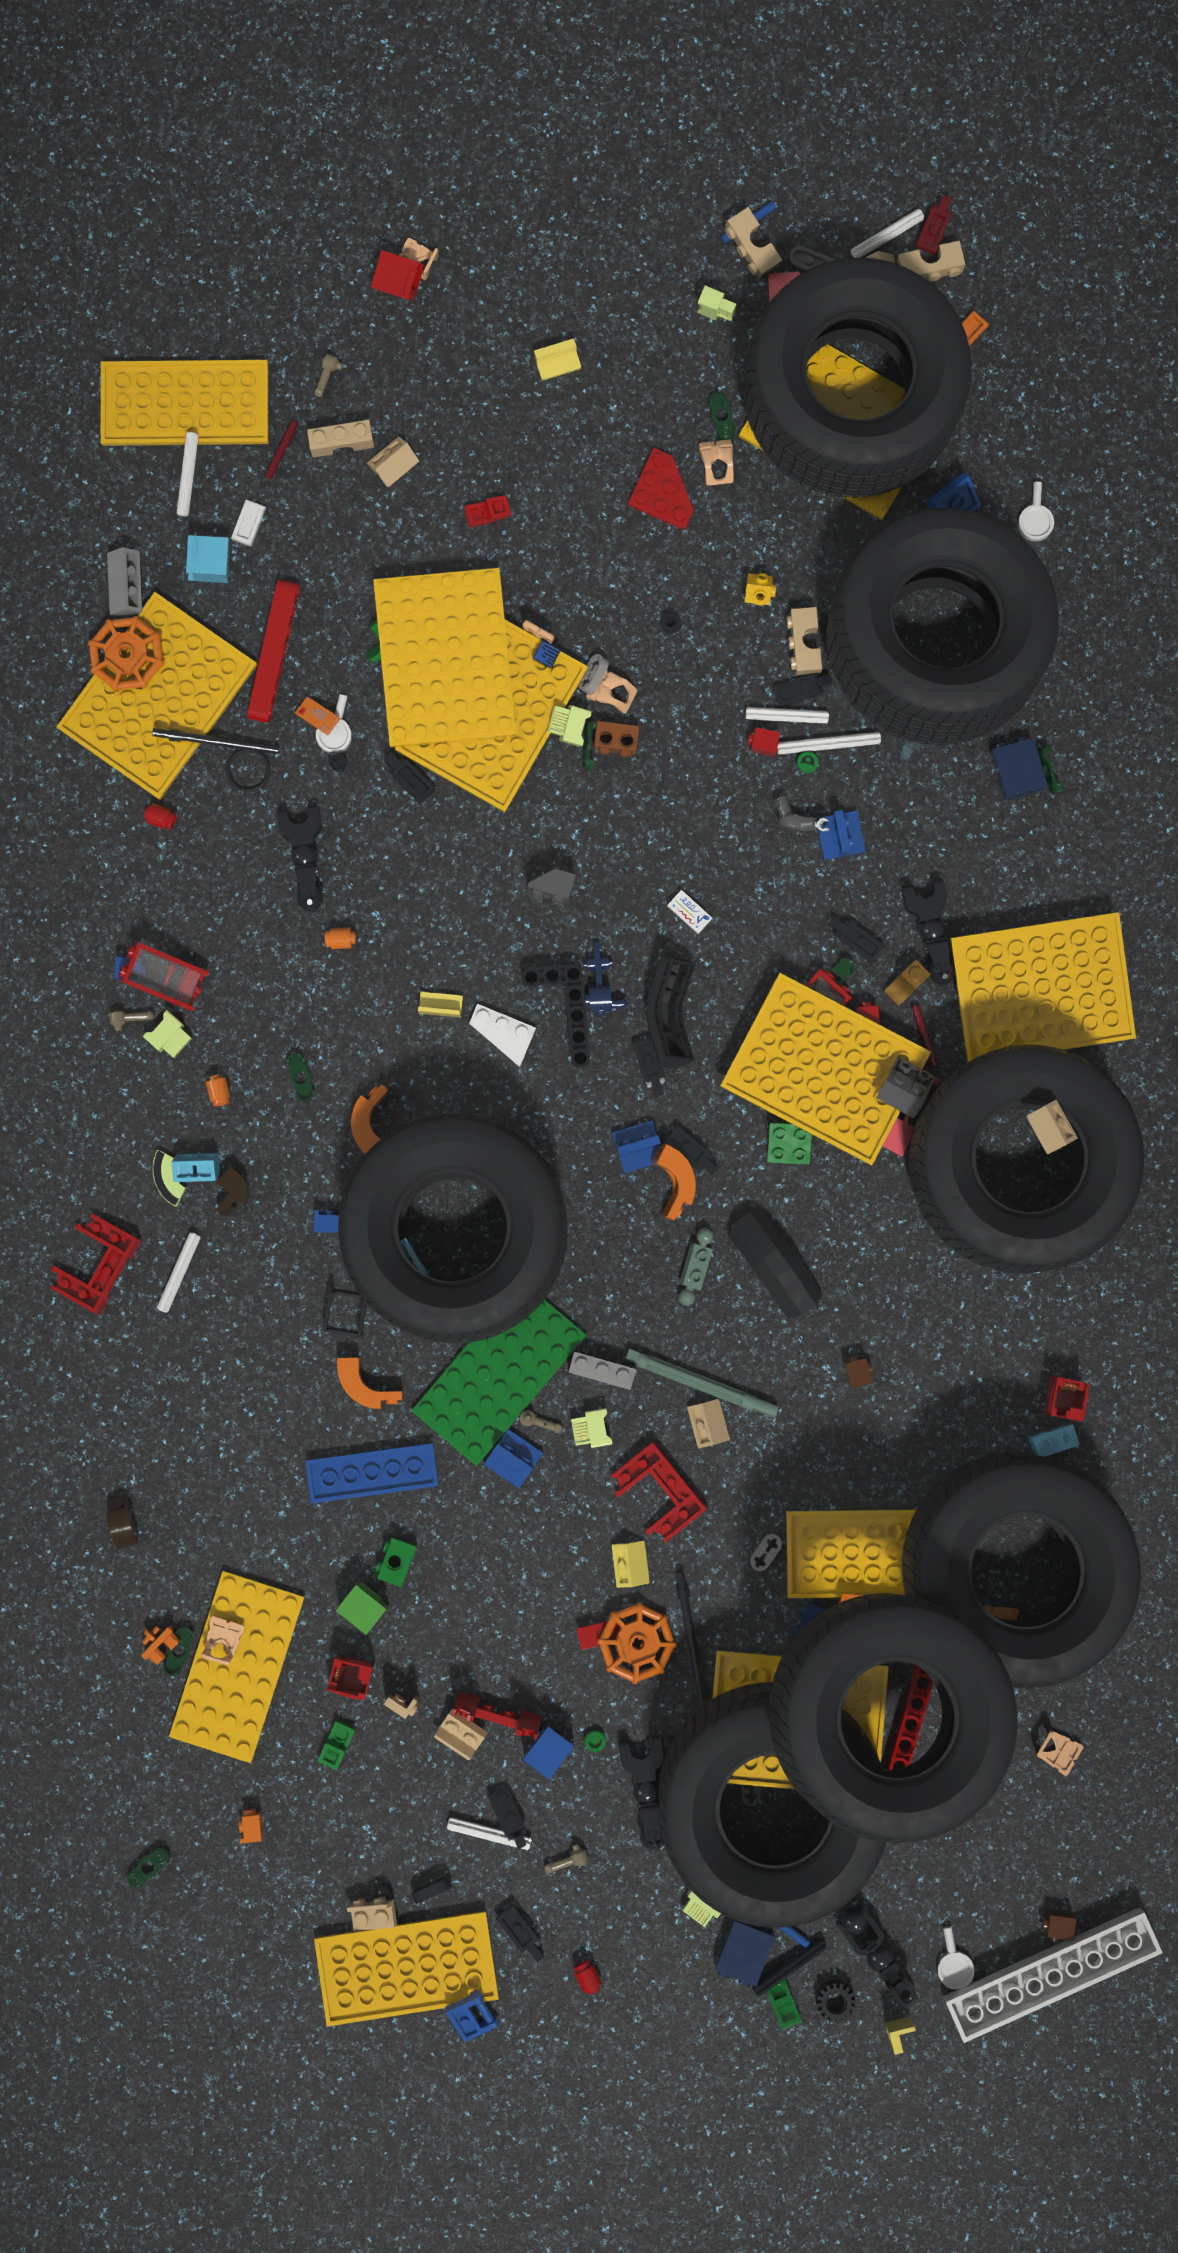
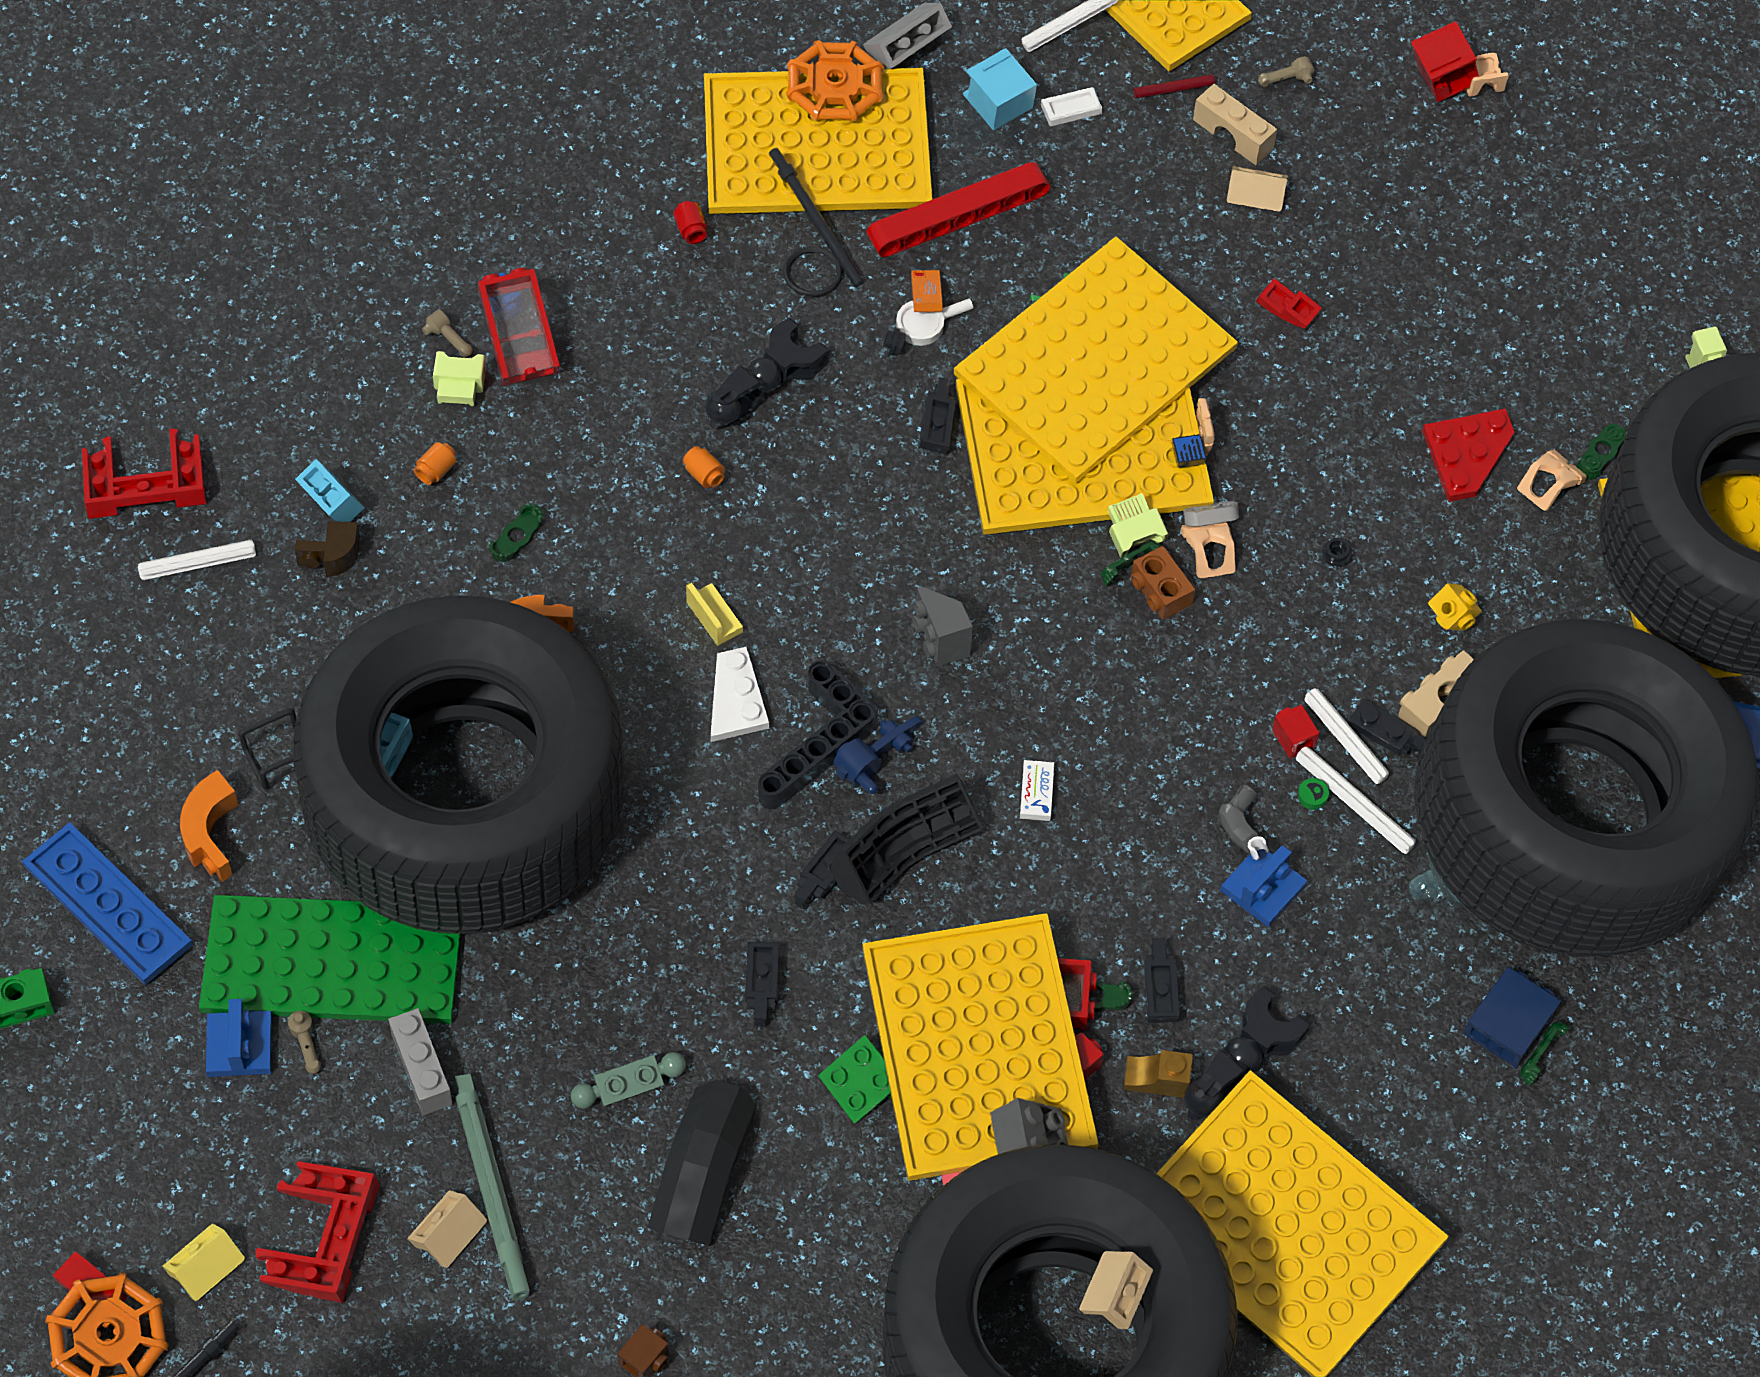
camera: 50 degrees right, 25 degrees down
(163, 1179) = (286, 491): tile -> none
(557, 359) = (1508, 260): light yellow panel -> none
(591, 1429) = (341, 1101): yellowish green piece -> none
(636, 1146) = (719, 922): blue bracket -> none
(682, 1179) = (731, 967): orange arch -> none
(924, 1035) = (1124, 1127): dark red bar -> none

